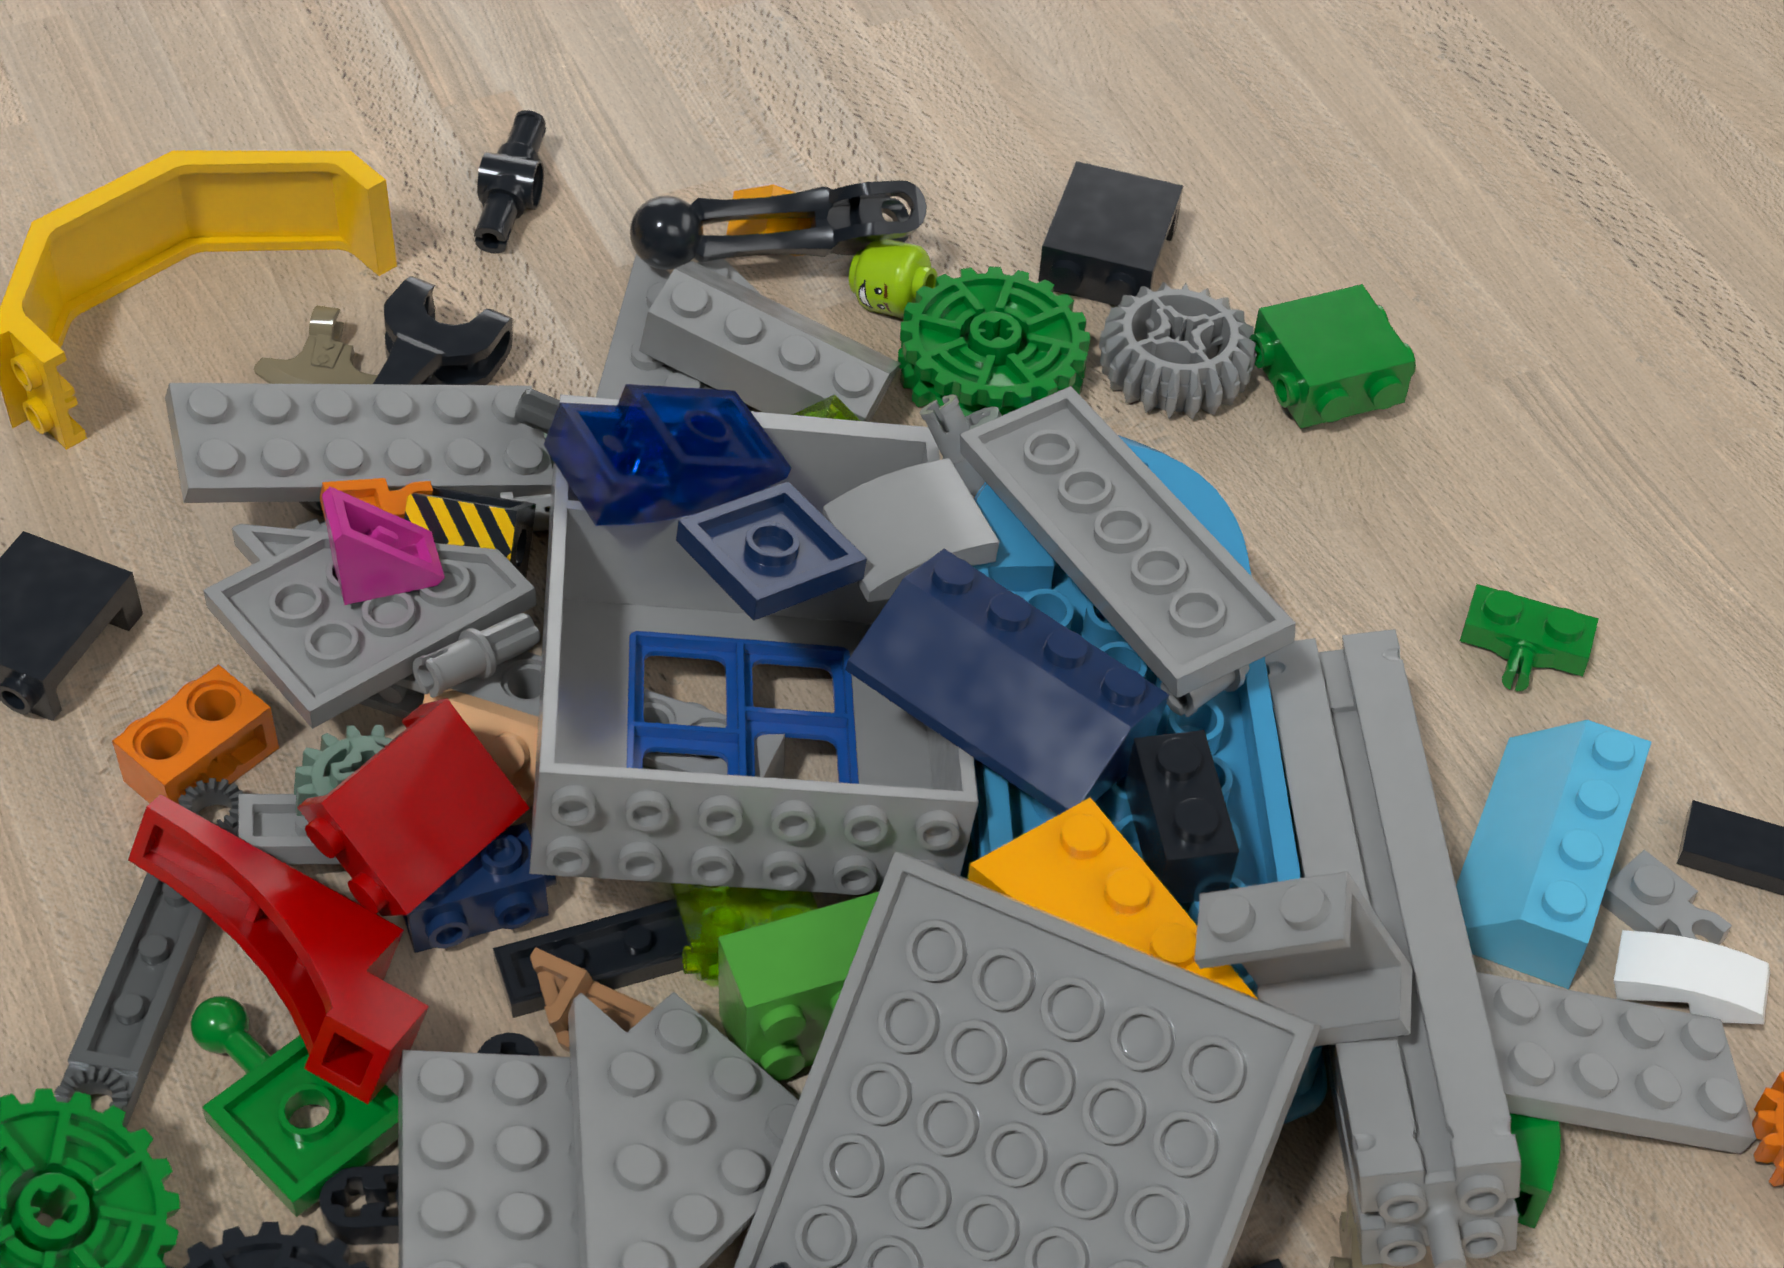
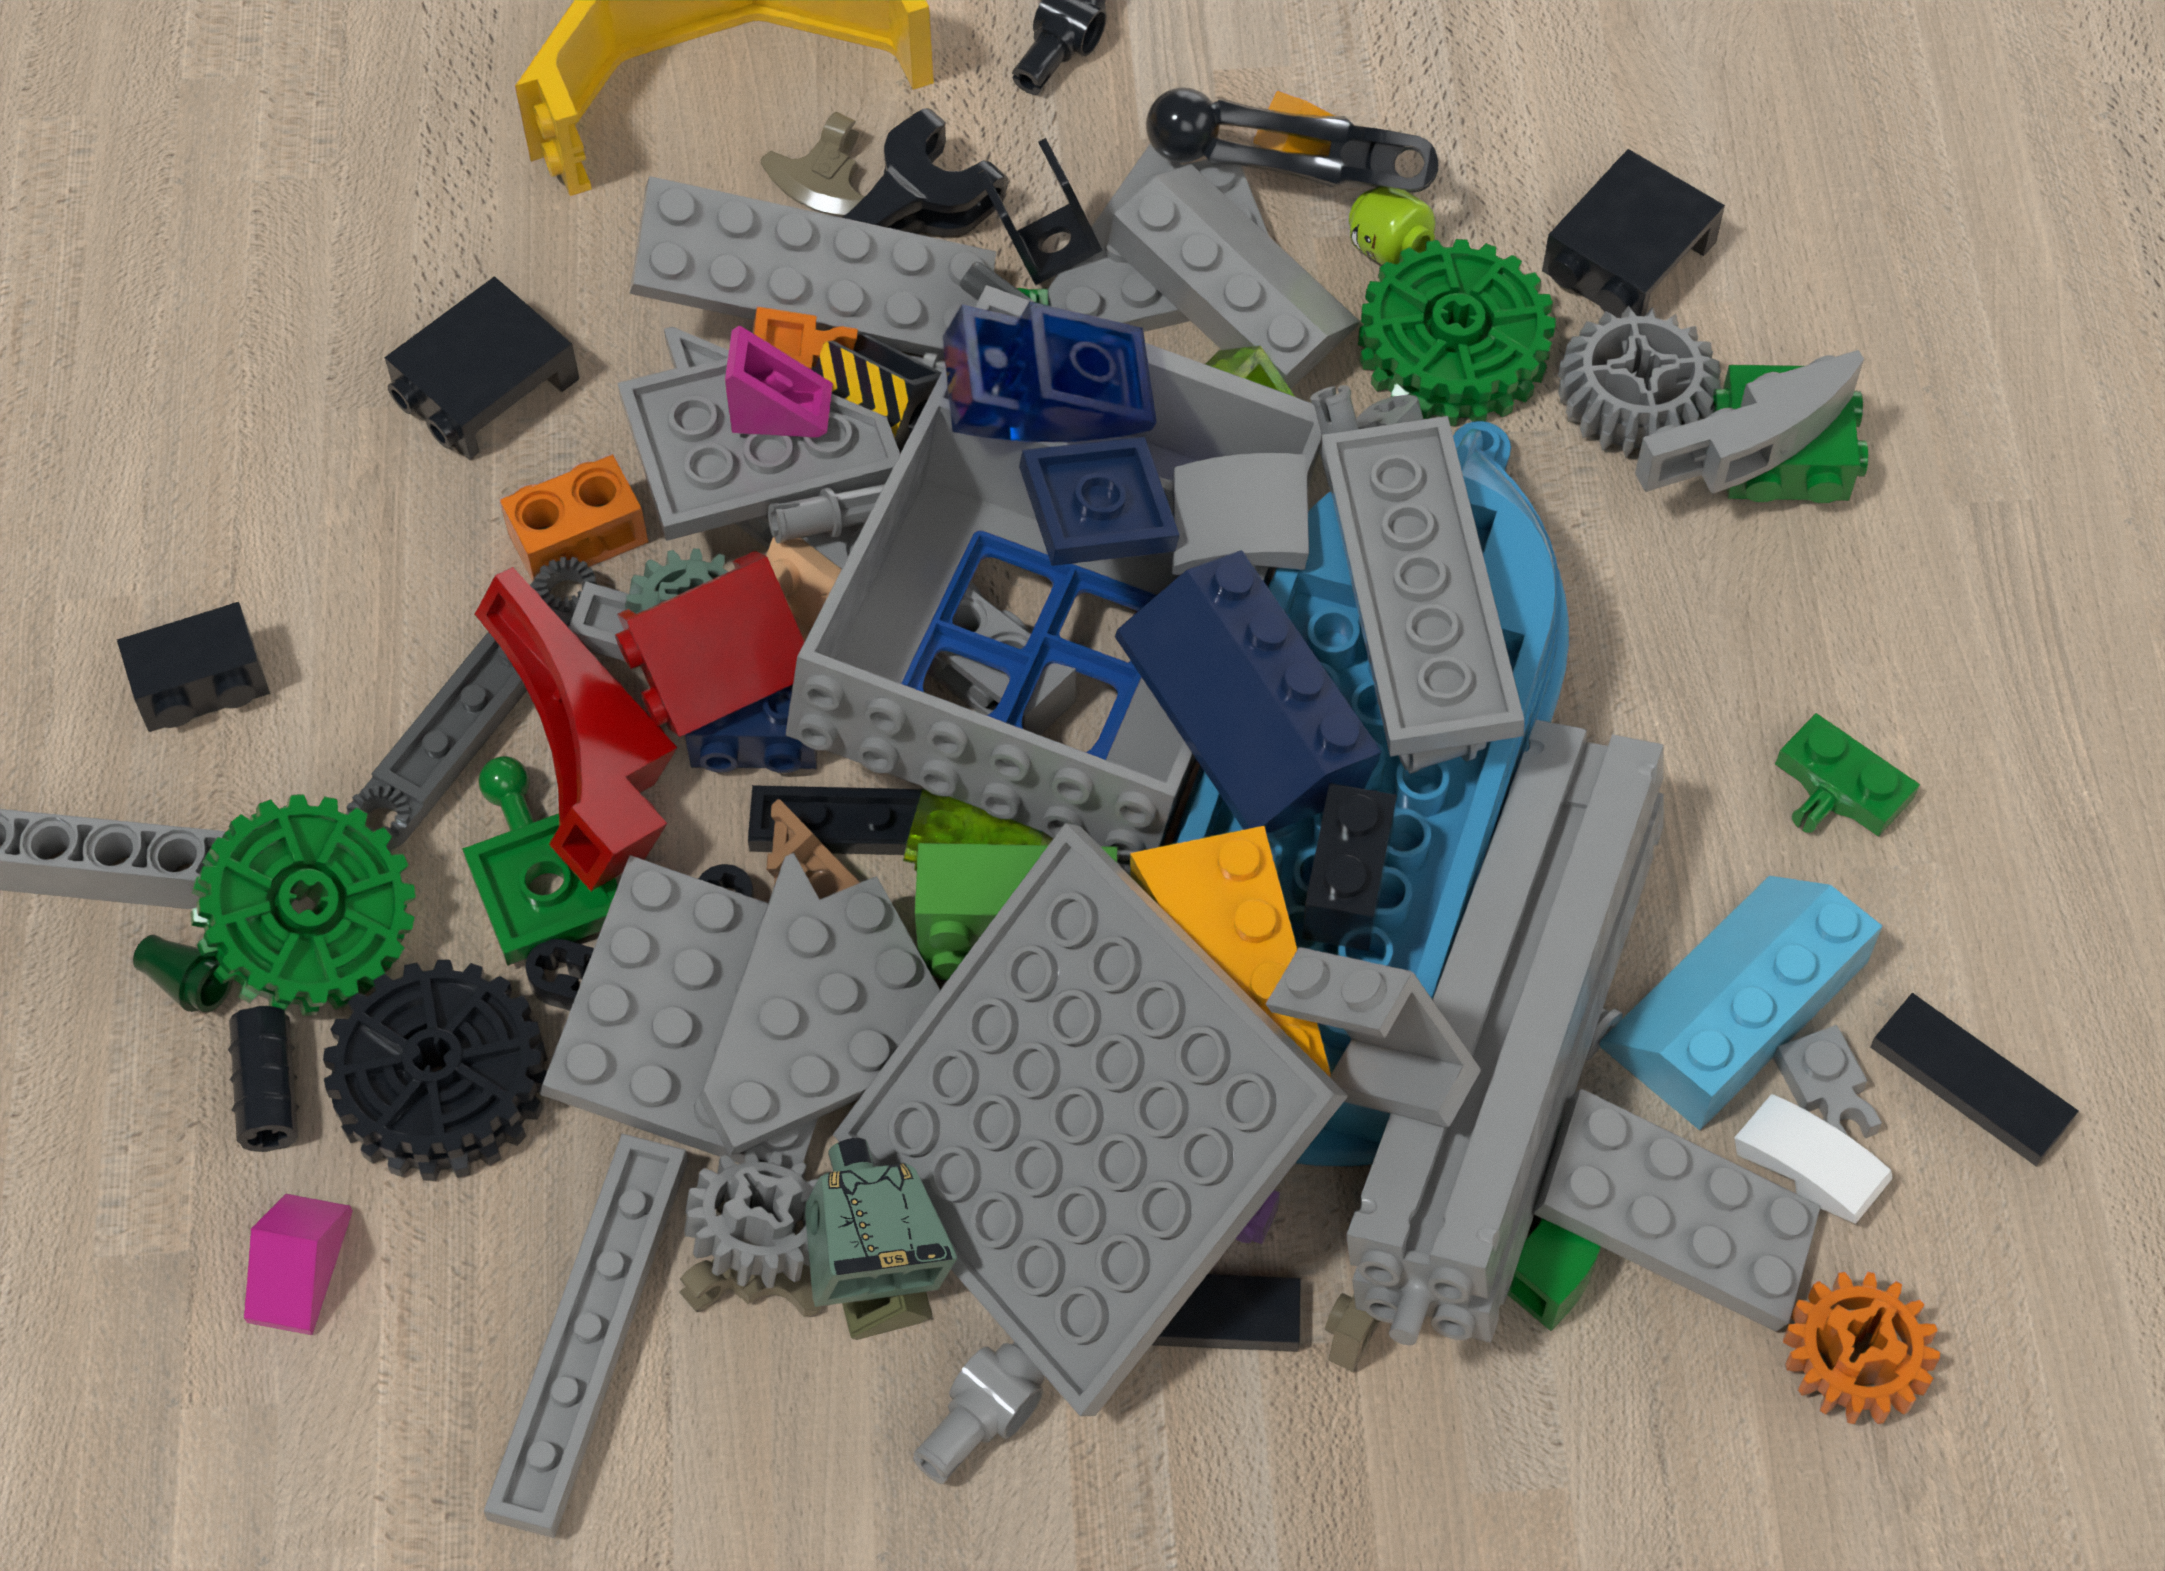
camera: 25 degrees right, 10 degrees up
(595, 340) = (1067, 219): none -> black piece
(1318, 357) = (1773, 423): none -> light grey slope

